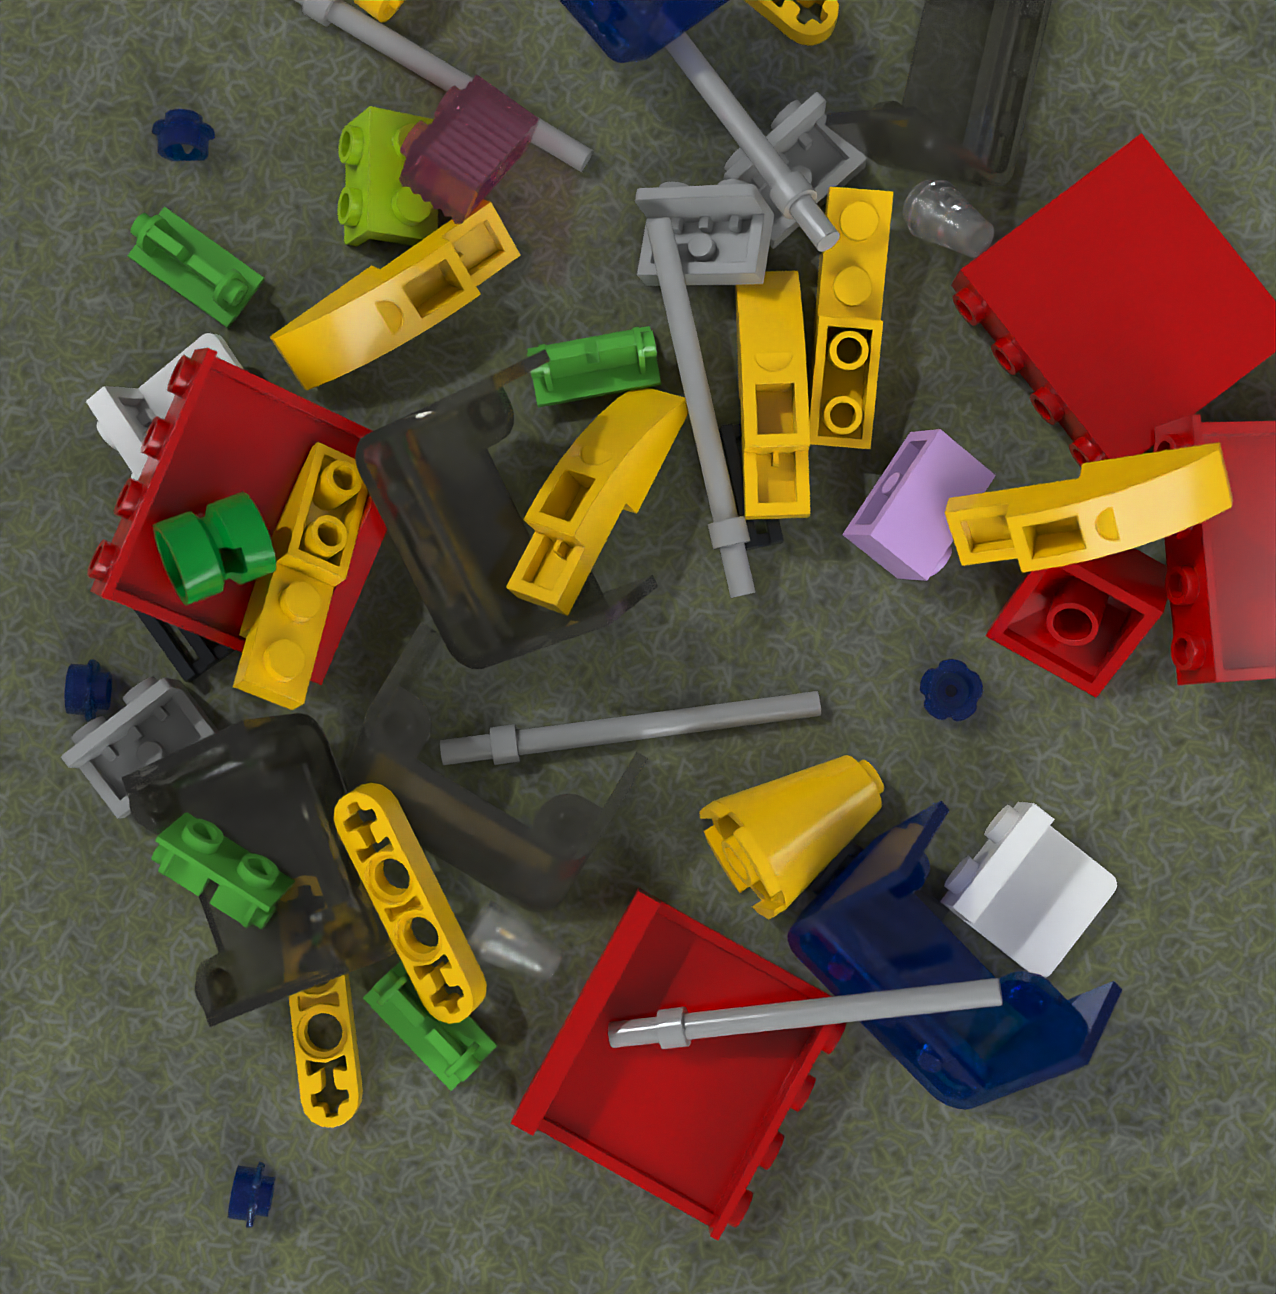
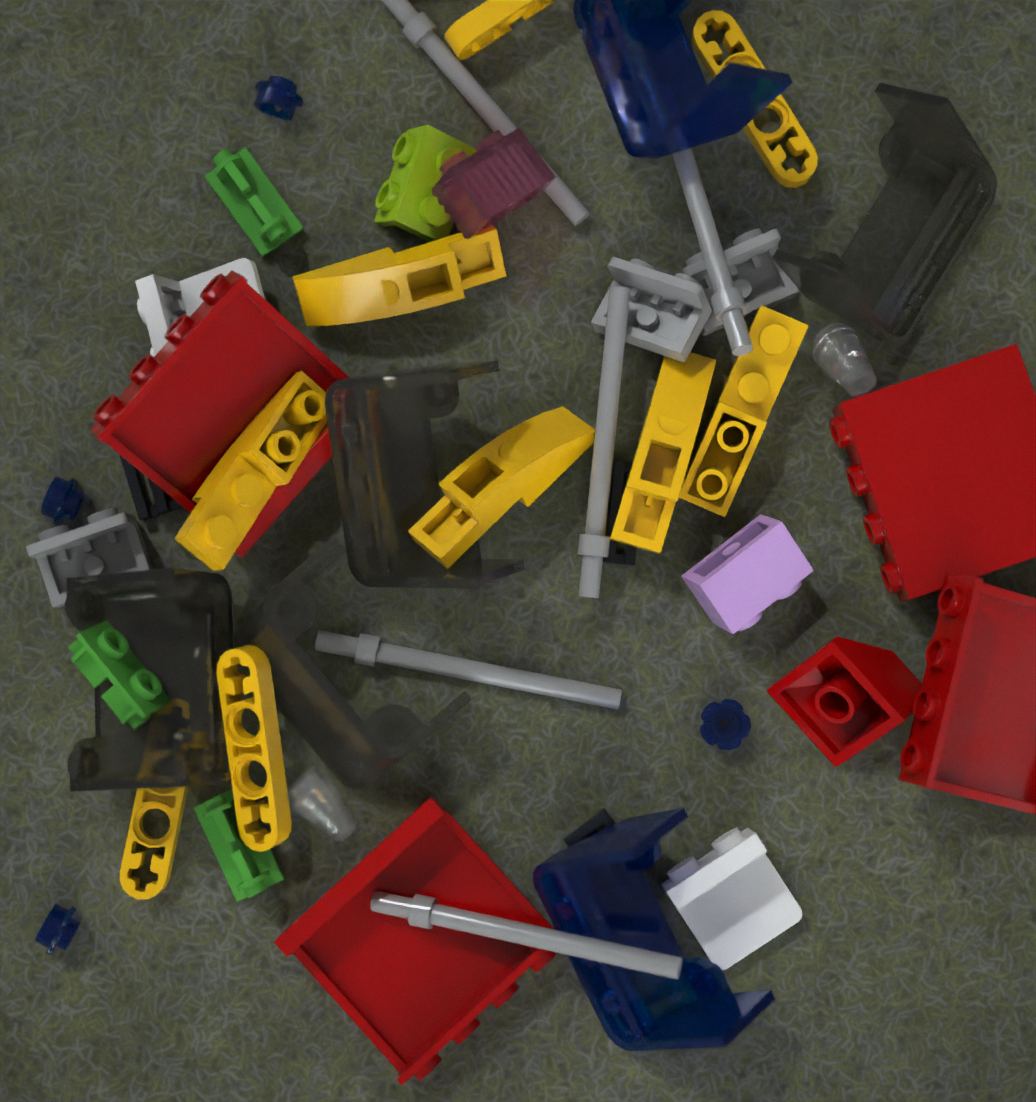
camera: 15 degrees right, 0 degrees up
(216, 547) = (195, 428): green wheel -> none
(596, 366) = (535, 382): bright green hinge -> none
(791, 828) = (565, 788): yellow cone -> none
(1100, 513) = (877, 629): yellow slope -> none

